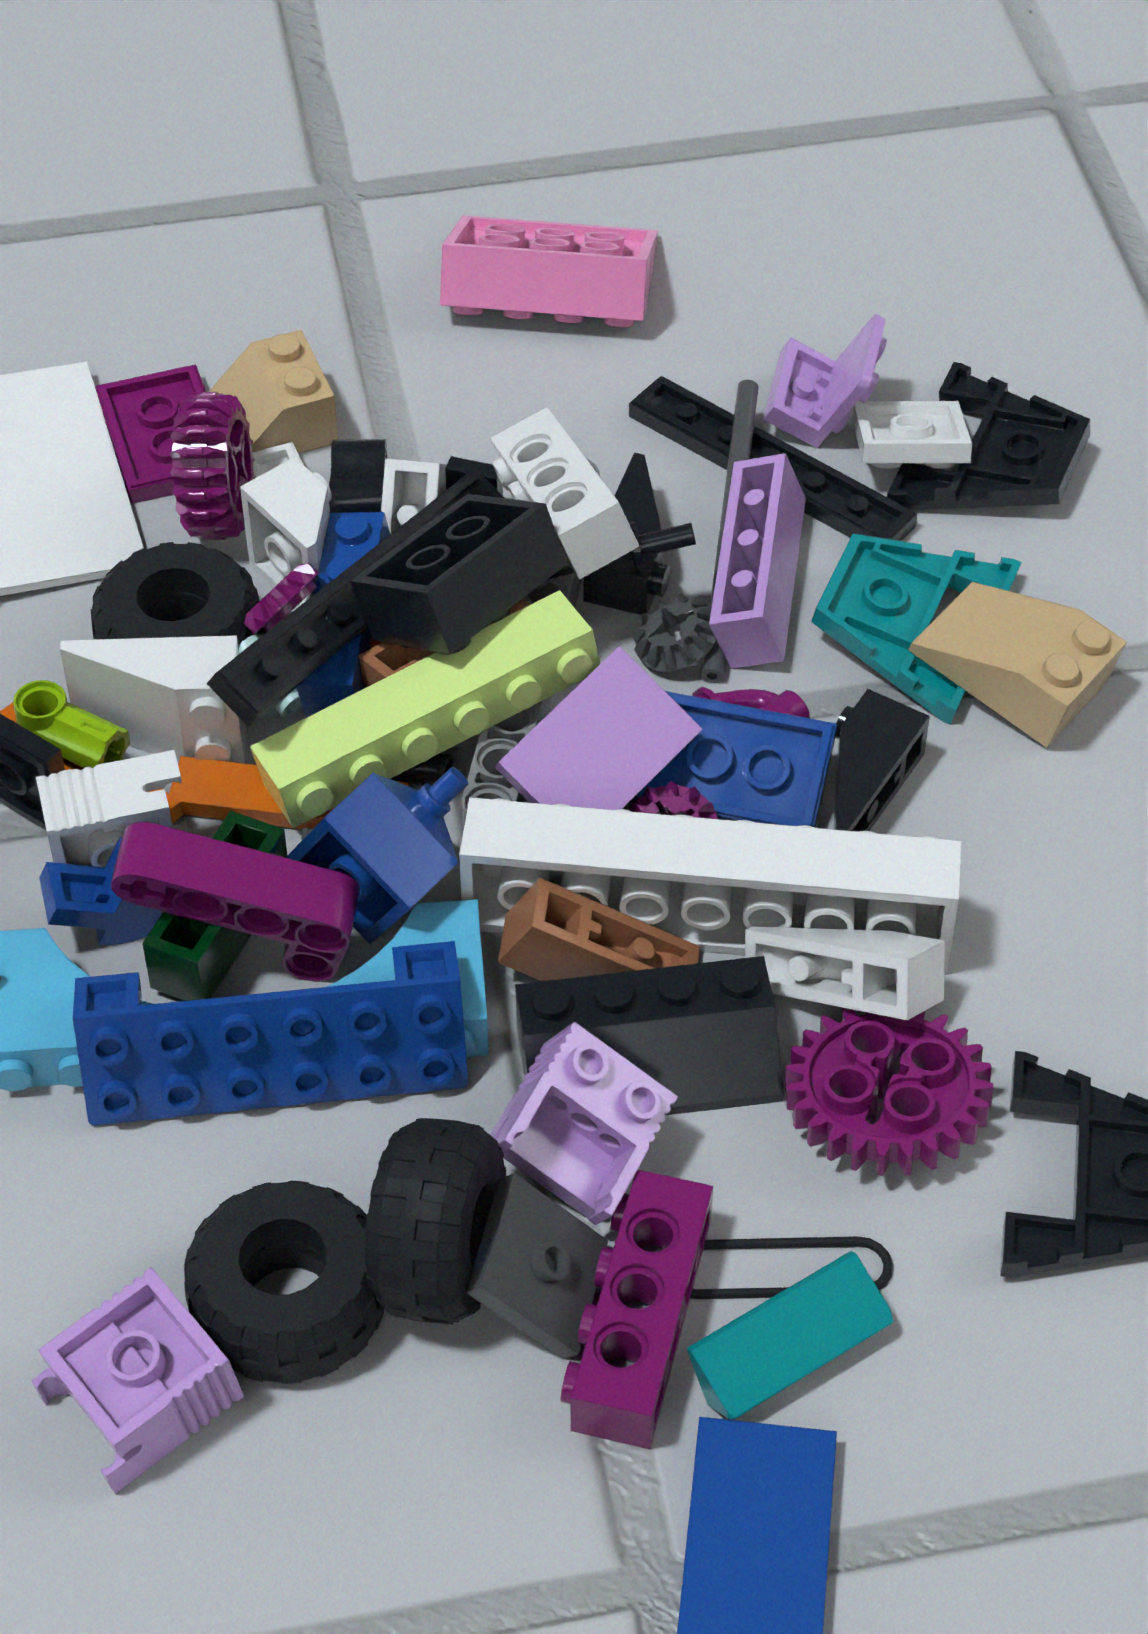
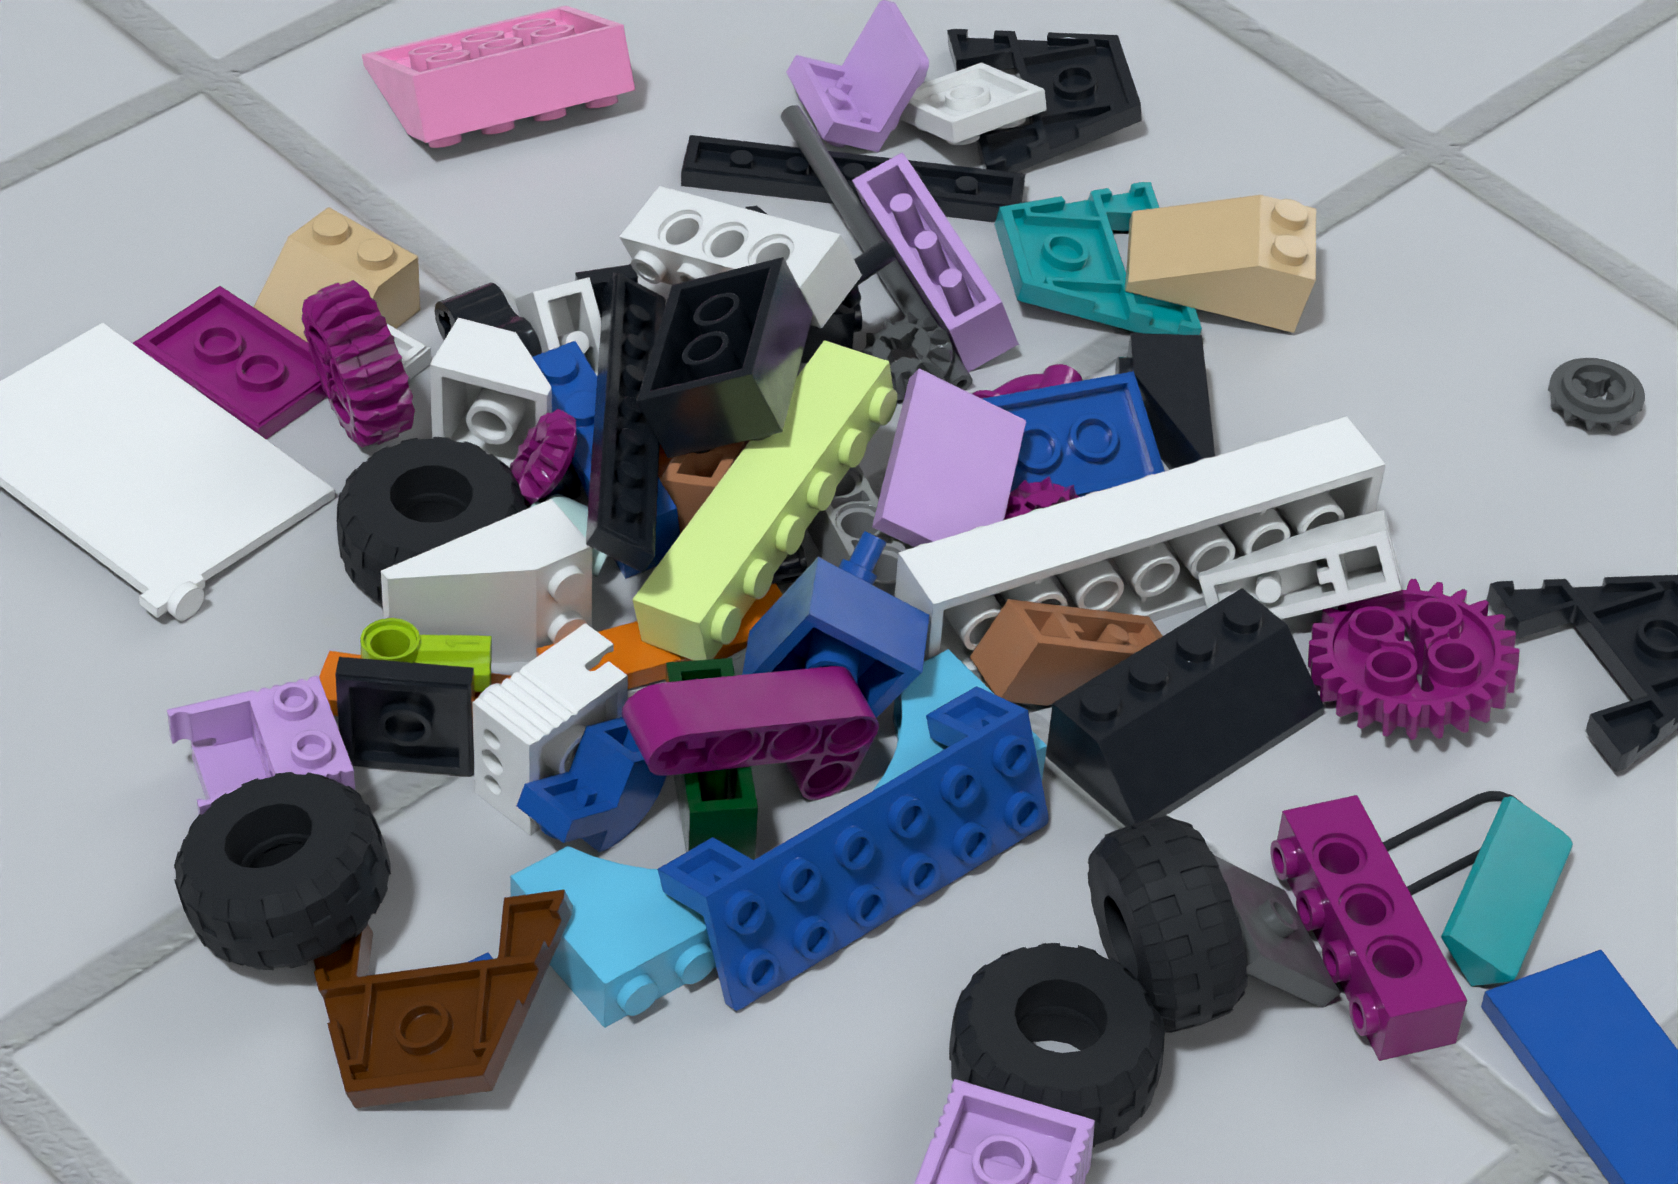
camera: 35 degrees left, 5 degrees down
(582, 1121) = (1213, 777): lavender piece -> none

